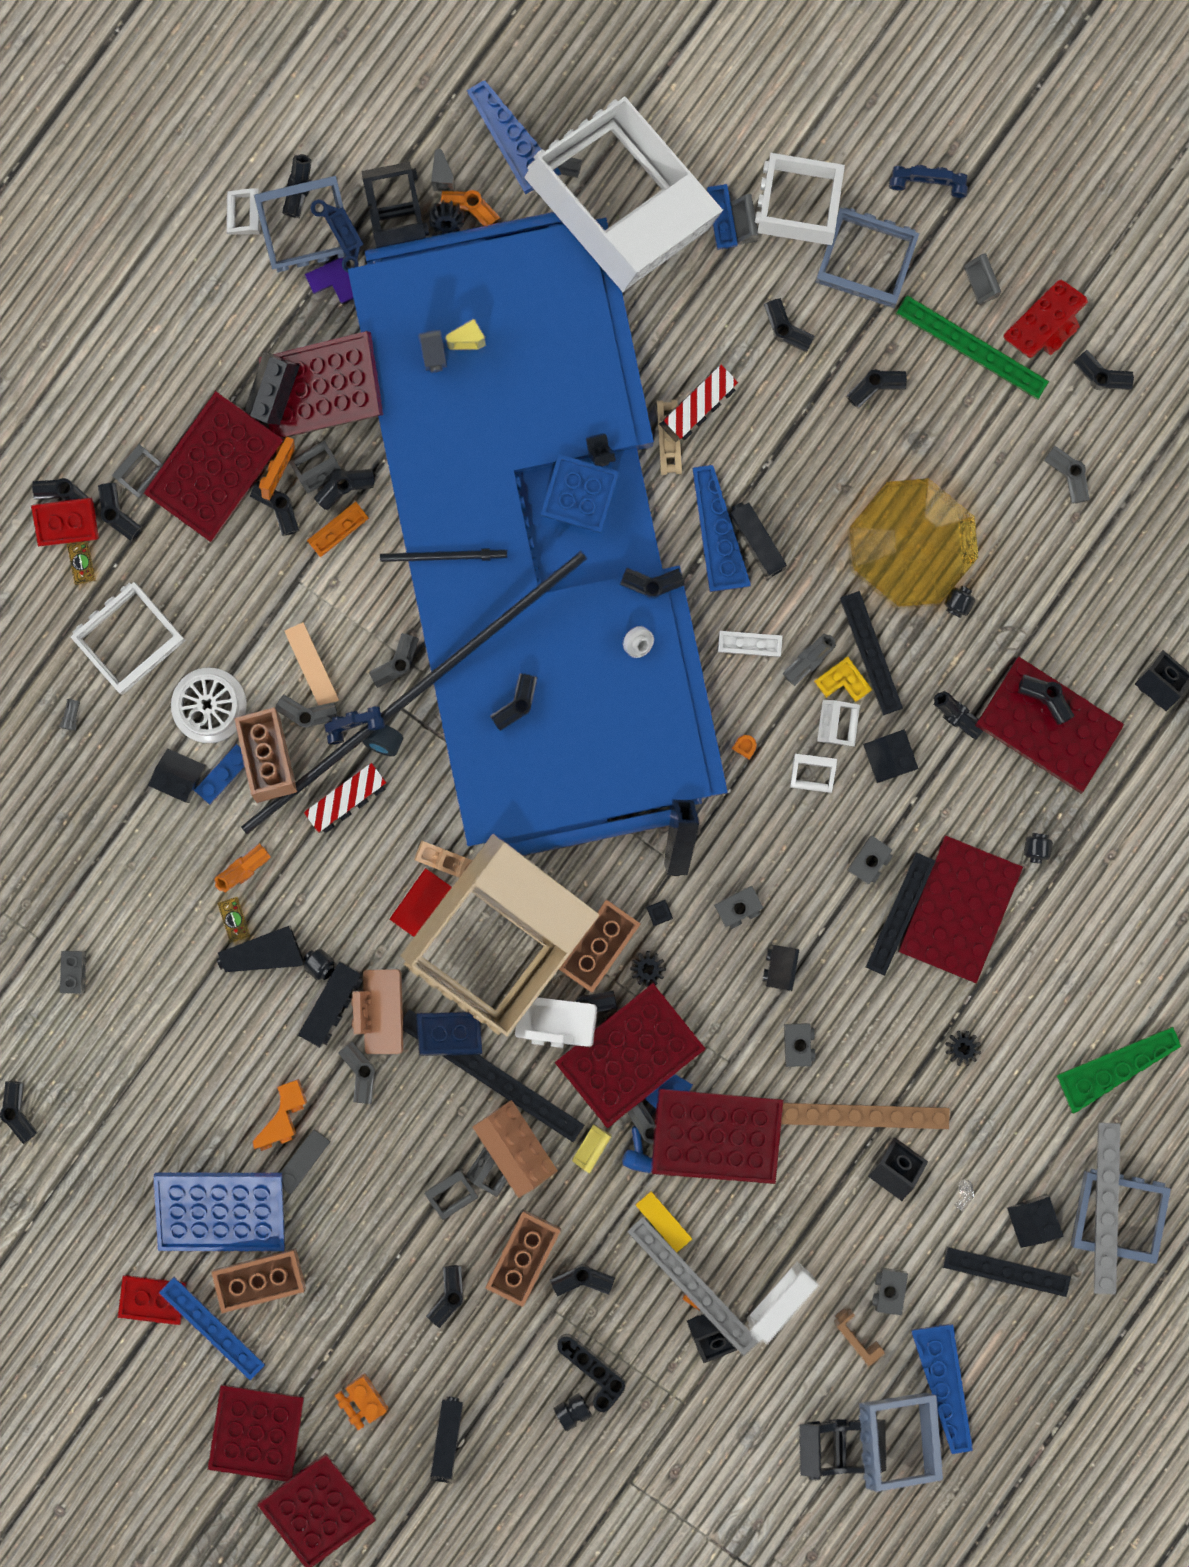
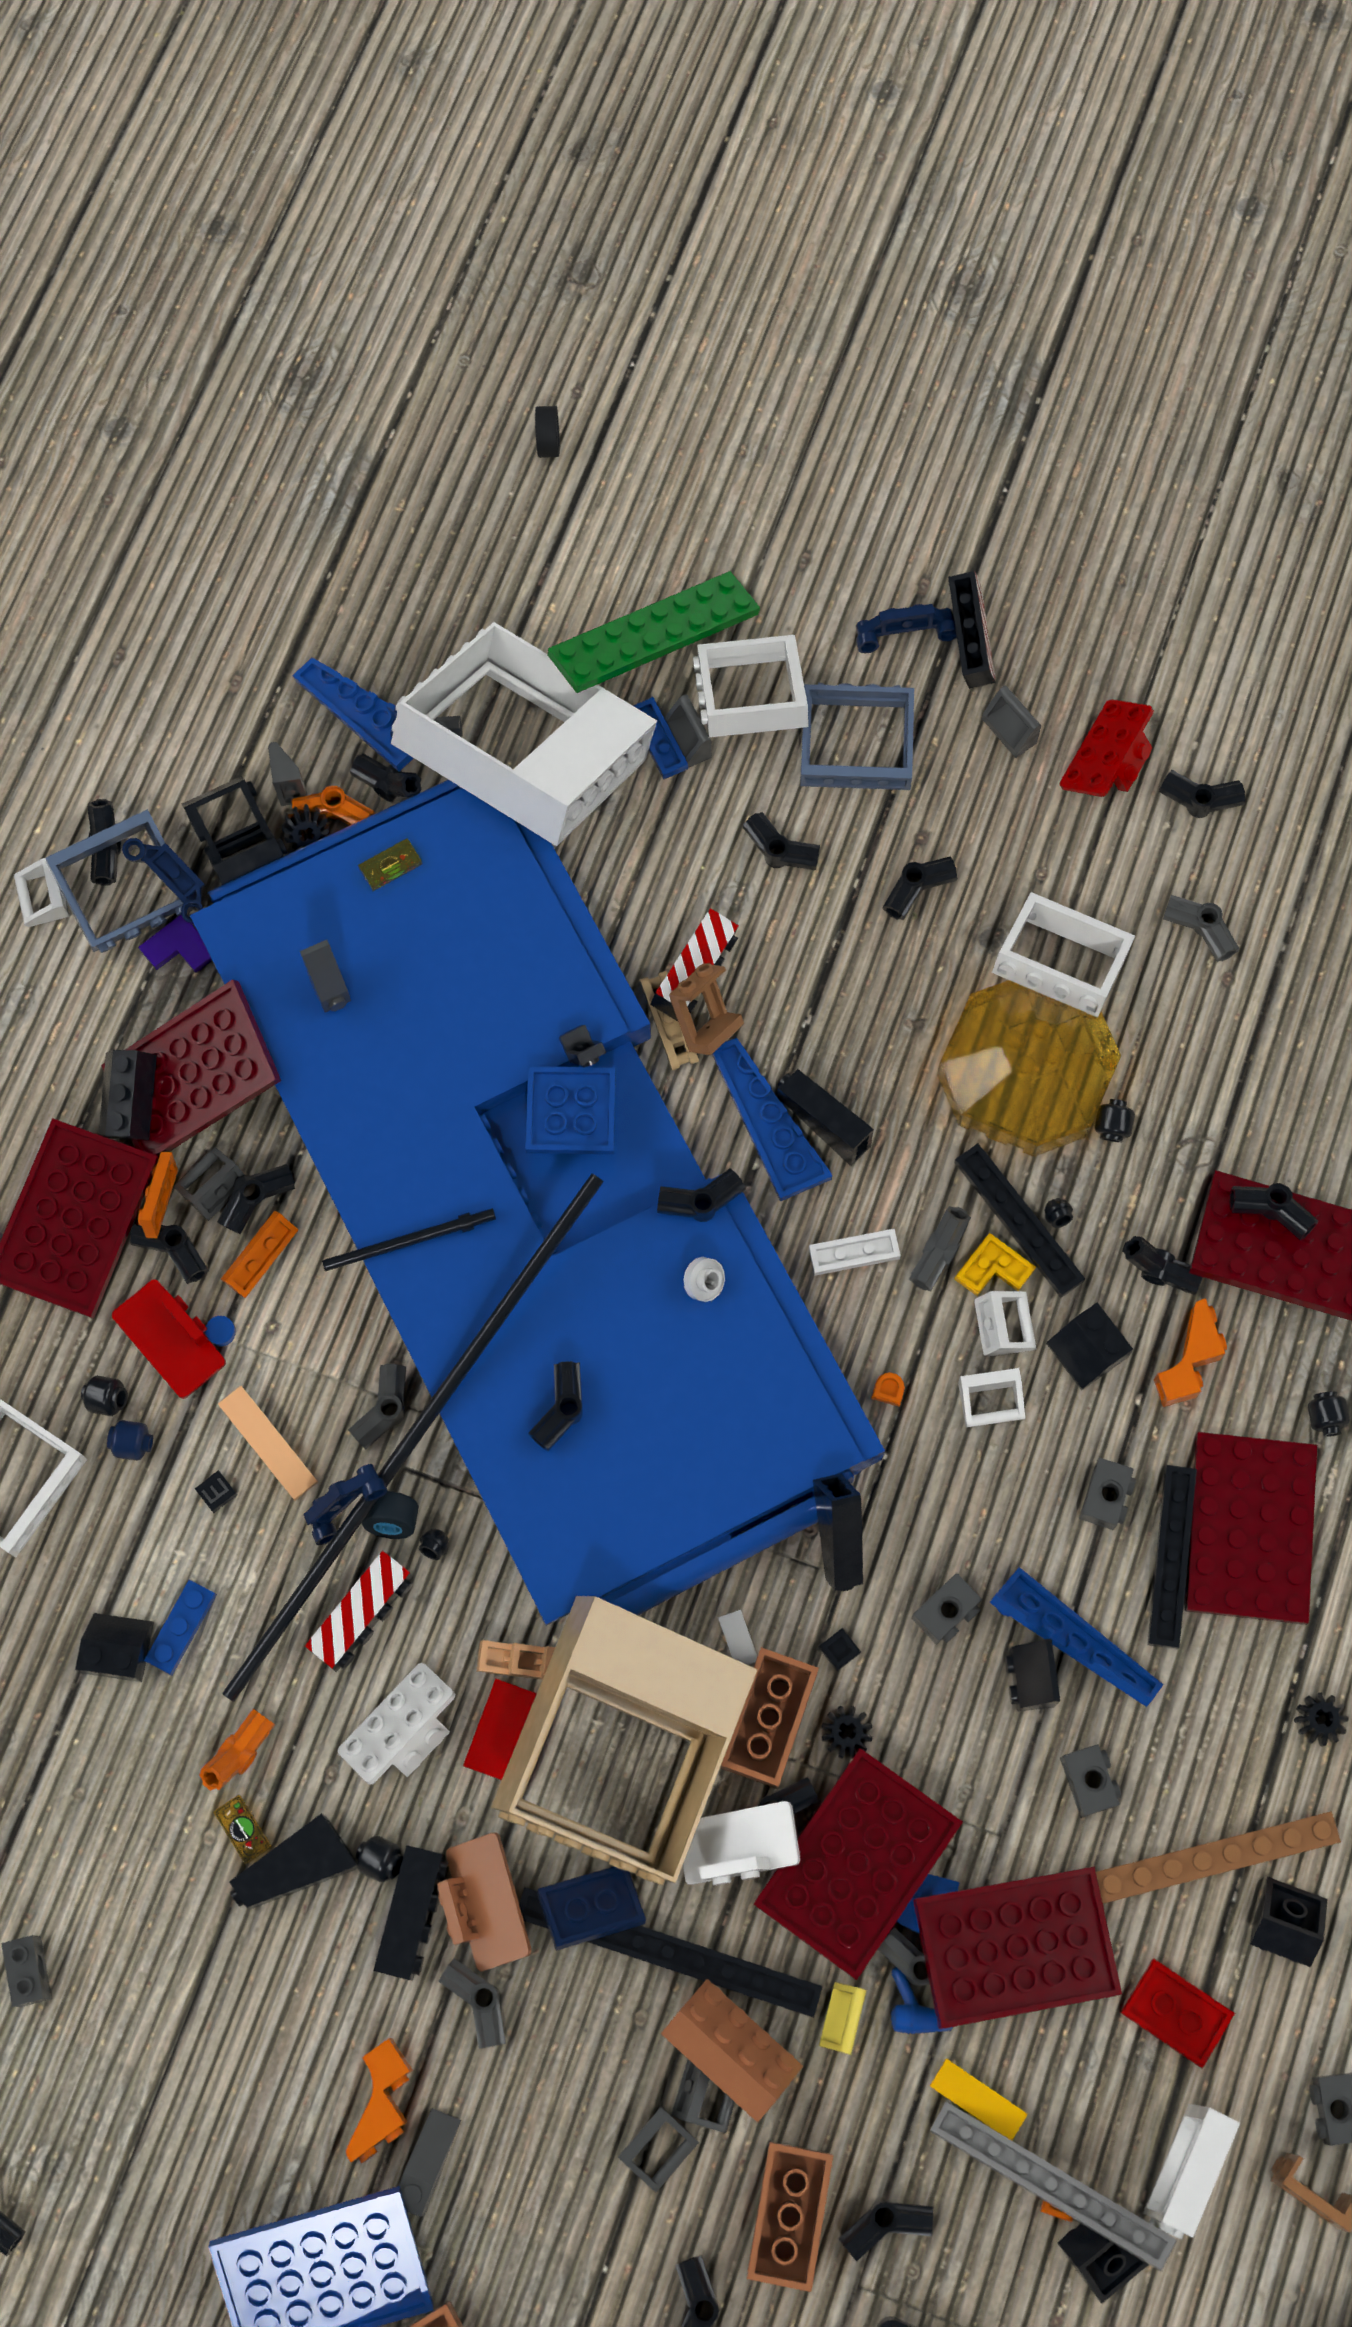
camera: 15 degrees left, 15 degrees down
(192, 729) = (128, 1576): white piece -> none
(207, 600) = (104, 1395): none -> black head
(218, 636) = (129, 1440): none -> dark blue head
(261, 571) = (169, 1338): none -> red bracket
(265, 755) = (231, 1580): nougat brick -> none
(268, 688) = (216, 1491): none -> black tile
(294, 710) = (258, 1511): dark grey piece -> none
(297, 576) = (220, 1331): none -> blue tile
(354, 882) = (401, 1727): none -> white bracket
(407, 766) = (434, 1544): none -> black plate
(466, 337) = (373, 951): light yellow tile -> none
(500, 270) = (390, 864): none -> clear yellow tile
(514, 194) = (385, 780): none -> black piece
(594, 886) = (738, 1637): none -> white sticker
(702, 454) = (722, 1023): none -> medium nougat panel
(741, 134) = (653, 631): none -> green plate
(807, 936) = (1052, 1619): none -> blue wing
(807, 1204) = (1177, 2013): none -> red tile
(899, 655) = (1058, 1213): none -> black plate
(967, 778) = (1201, 1347): none -> orange arch
(972, 347) = (1025, 809): green tile -> none
(976, 197) = (971, 629): none -> black brick
(977, 449) = (1074, 927): none -> white window

